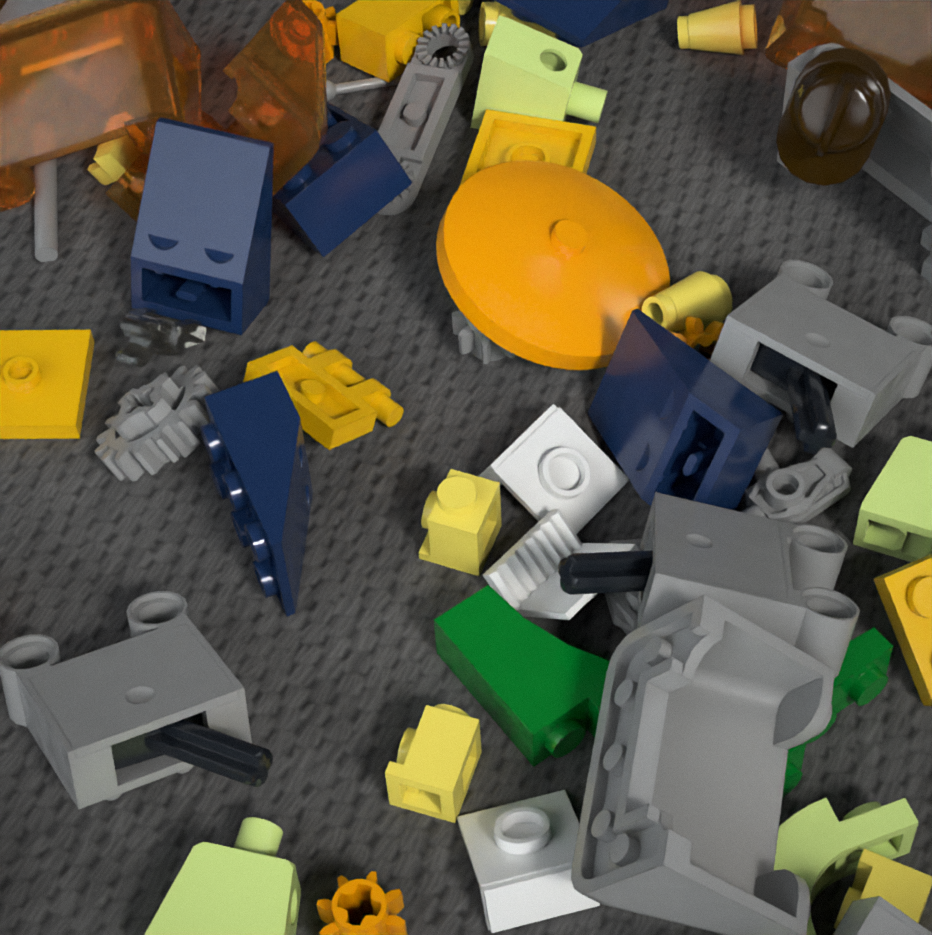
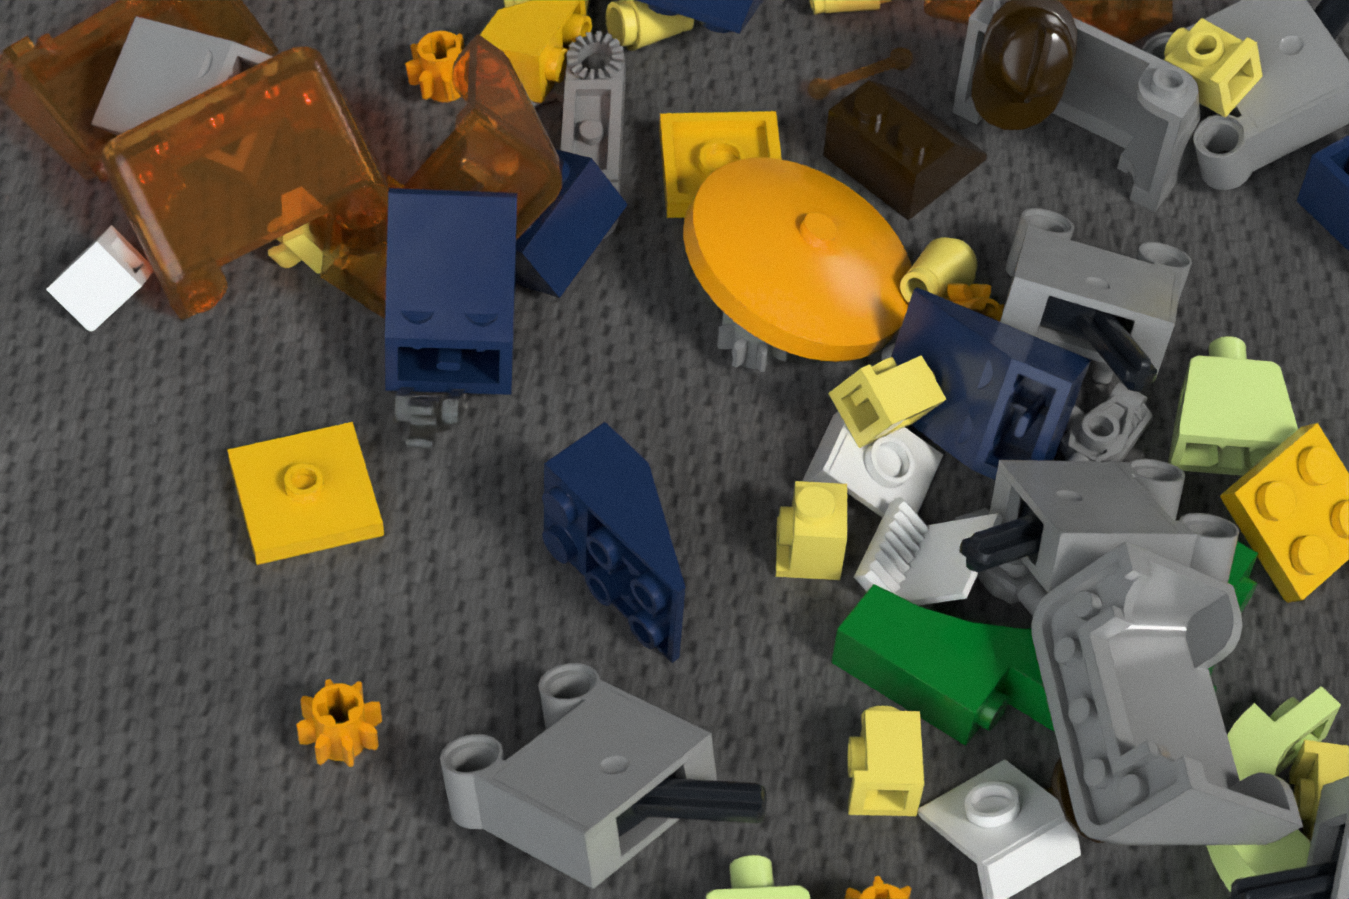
camera: 25 degrees left, 0 degrees up
(46, 211) = (246, 317): light grey bar -> none
(156, 423) = (478, 501): light grey gear -> none
(328, 393) = (655, 436): yellow plate -> none
(533, 77) = (699, 72): yellowish green torso -> none
(575, 409) = (886, 398): none -> light yellow brick
(704, 180) = (897, 147): none -> dark brown slope
(743, 103) = (899, 59): none -> clear orange hinge

